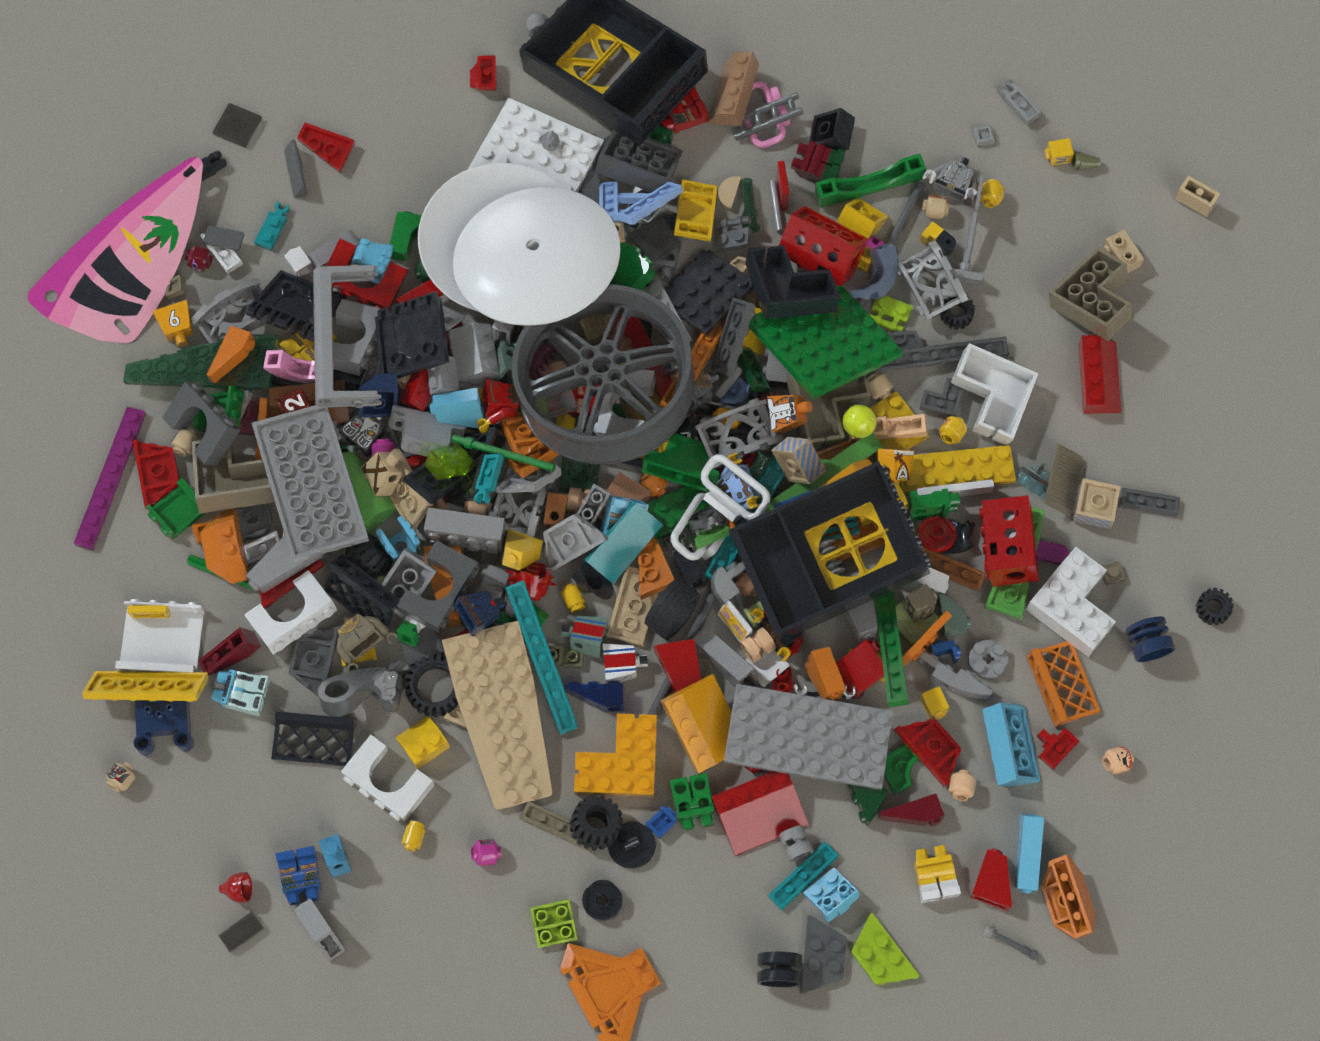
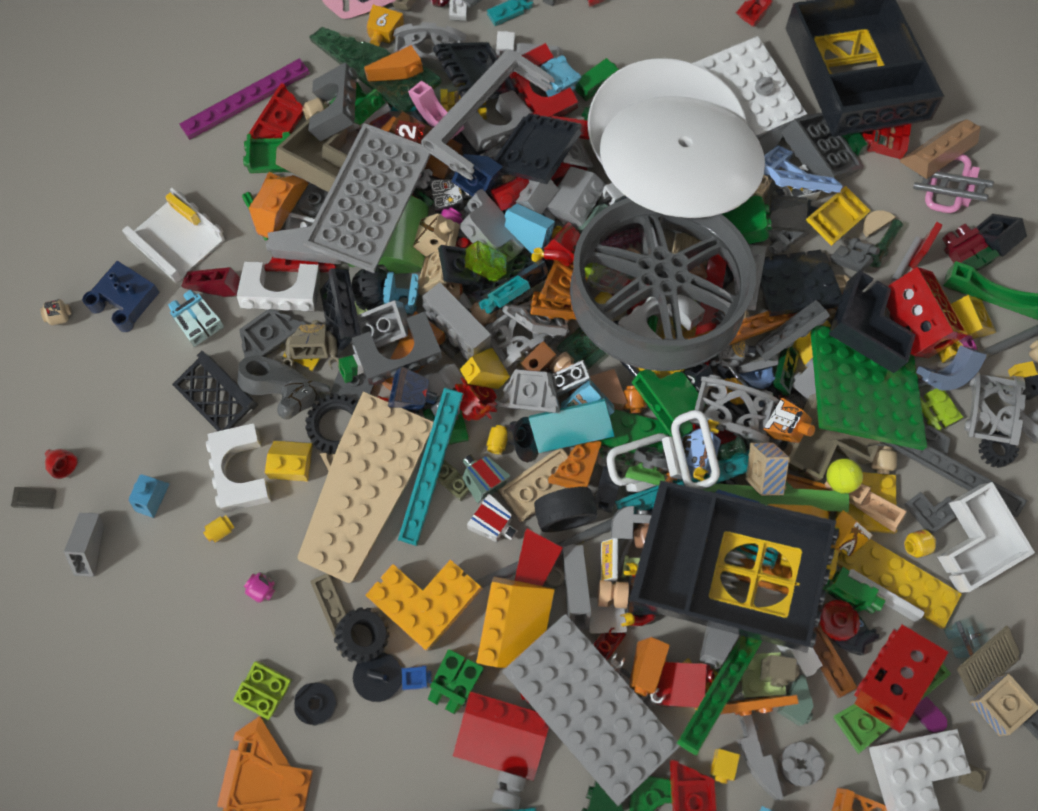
camera: 35 degrees right, 0 degrees up
(145, 686) = (129, 259): yellow plate -> none
(300, 880) = (110, 489): blue hips -> none
(471, 443) = (515, 260): green bar -> none
(602, 696) = (457, 538): clear blue slope -> none
(942, 648) = (768, 721): blue bracket -> none

